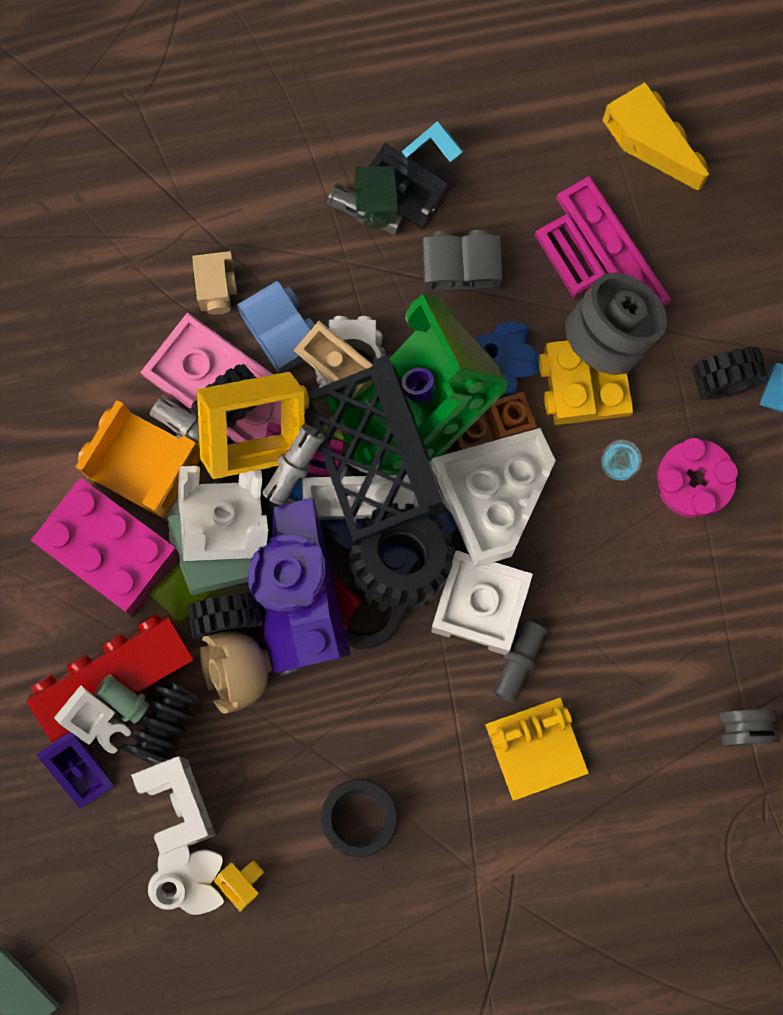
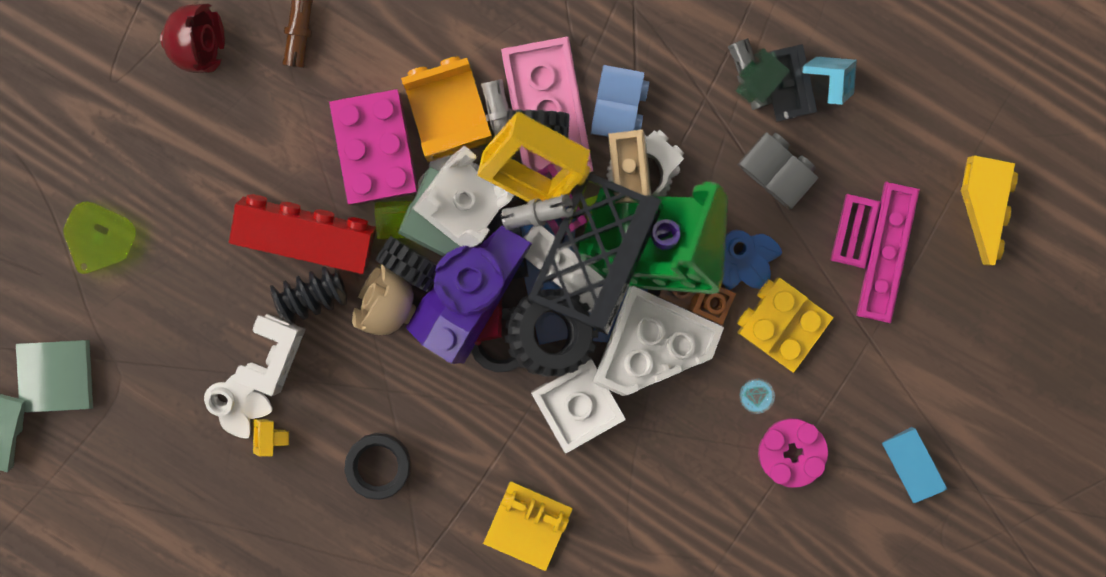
camera: 45 degrees right, 10 degrees up
(76, 769) = (230, 273): dark purple slope -> none
(90, 717) = (266, 253): white plate -> none
(122, 699) = (295, 257): sand green pin -> none
(214, 281) = (603, 33): tan brick -> none
(519, 662) = (568, 463): dark grey pin -> none
(615, 323) = (835, 308): dark grey wheel -> none
(730, 373) = (878, 408): black tyre -> none

